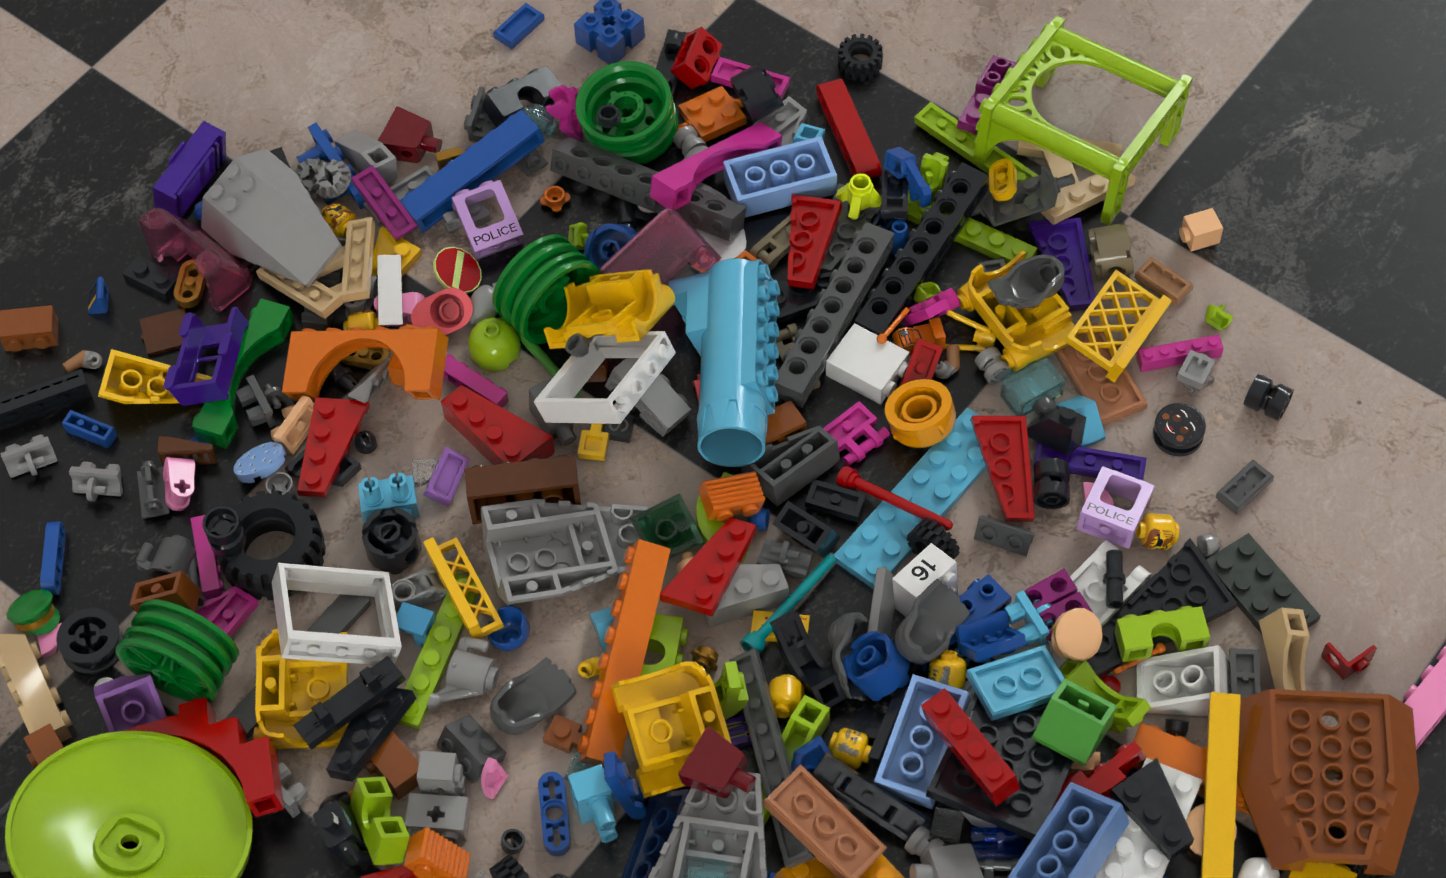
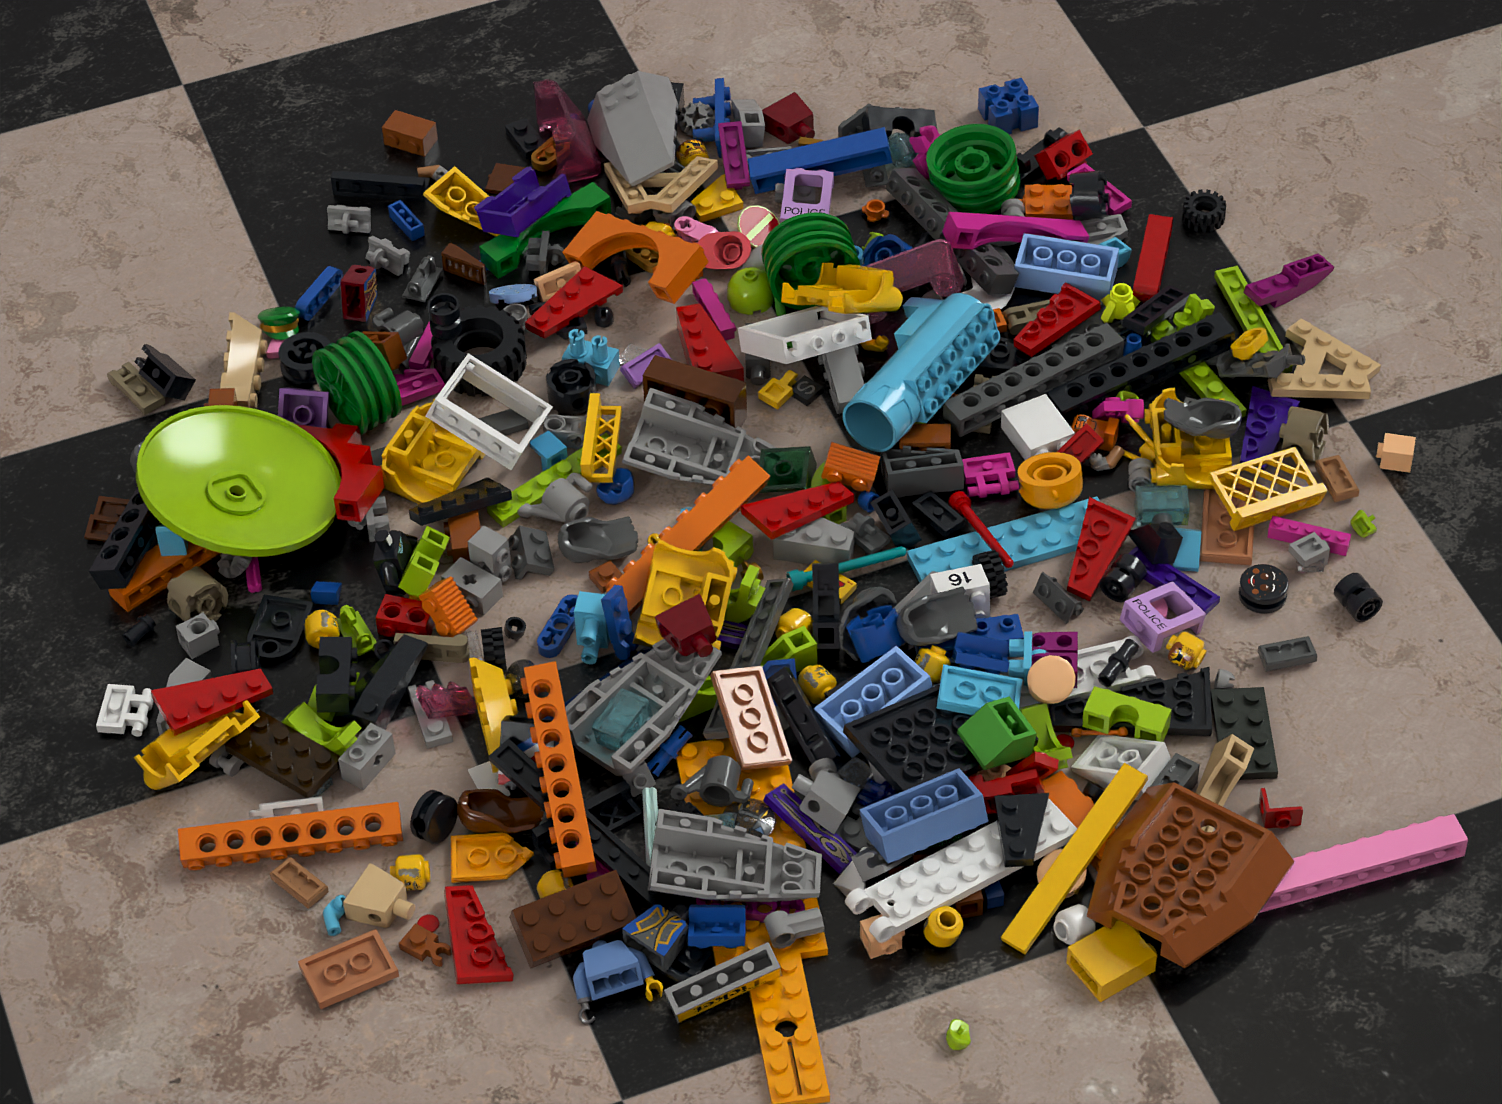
camera: 30 degrees right, 10 degrees down
(94, 524) = (362, 284): none -> dark red torso
(98, 297) = (477, 135): blue slope -> none
(179, 482) = (446, 279): bright pink piece -> none
(190, 169) = (616, 60): dark purple piece -> none
(340, 181) = (713, 117): light grey gear -> none
(349, 702) = (459, 476): black hinge -> none
(370, 382) = (633, 273): light grey slope -> none
(389, 290) = (695, 215): white sticker -> none
(492, 778) = (531, 579): bright pink tile -> none
(518, 26) = (939, 77): blue tile -> none
(577, 345) = (799, 304): dark grey hinge -> none
(608, 116) = (949, 159): black plate -> none
(882, 338) = (1059, 412): orange hinge -> none
(903, 164) = (1169, 295): blue piece -> none
(970, 747) = (897, 708): red brick -> none
(1062, 47) = (1361, 260): lime arch -> none
(1128, 733) = (1038, 760): none -> red plate

